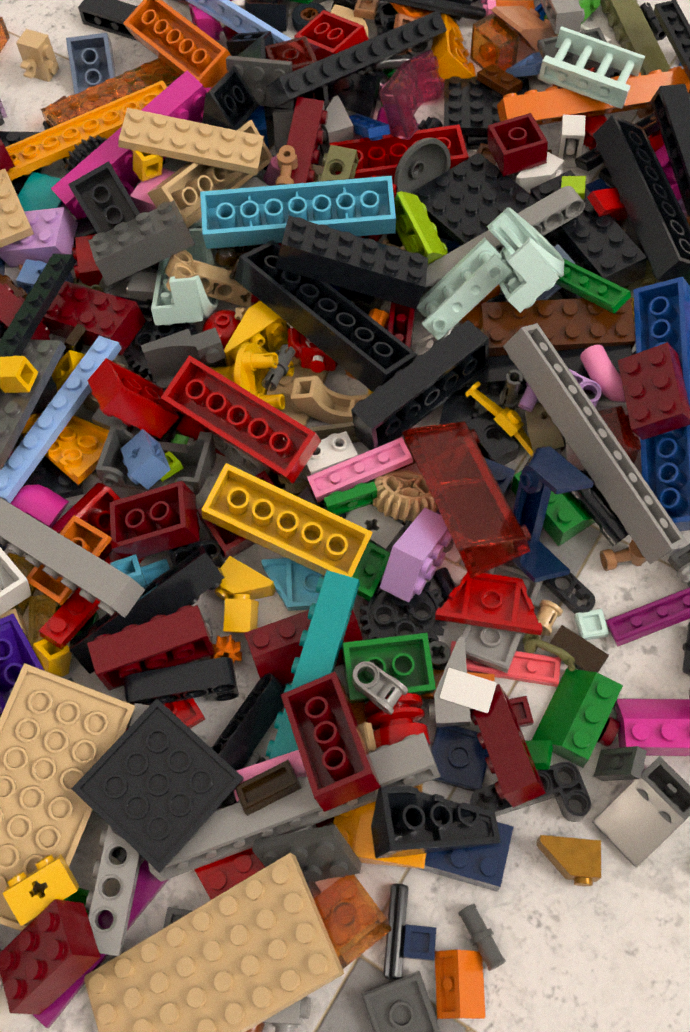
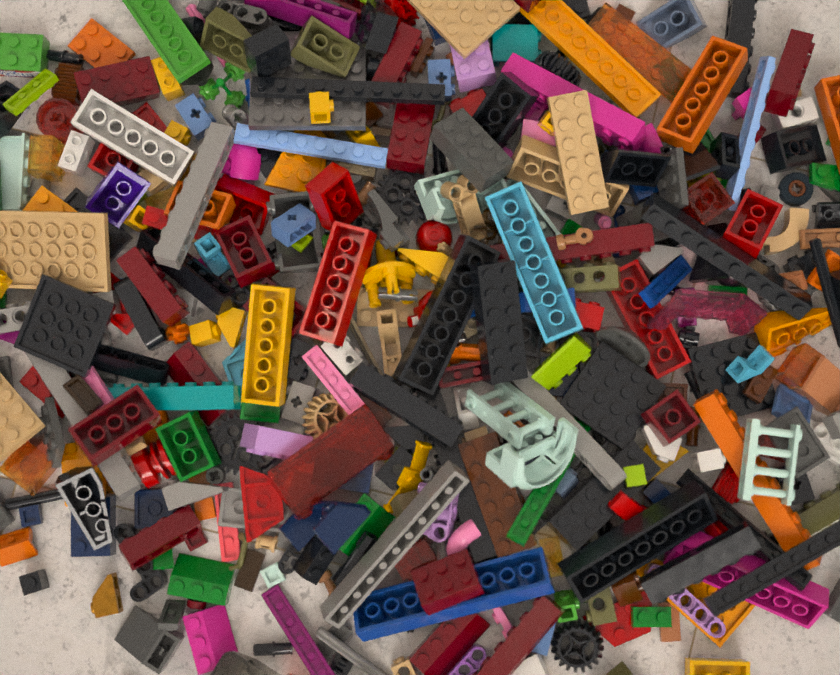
camera: 70 degrees right, 20 degrees up
(351, 499) = (302, 374): green plate -> none
(379, 687) = (161, 447): light grey piece -> none
(468, 690) = (187, 503): white sticker -> none
(479, 76) = (755, 364): none -> medium azure slope
(481, 937) = (44, 552): dark grey pin -> none
(523, 964) = (34, 582): none -> black brick
(586, 560) = (313, 561): none -> black brick

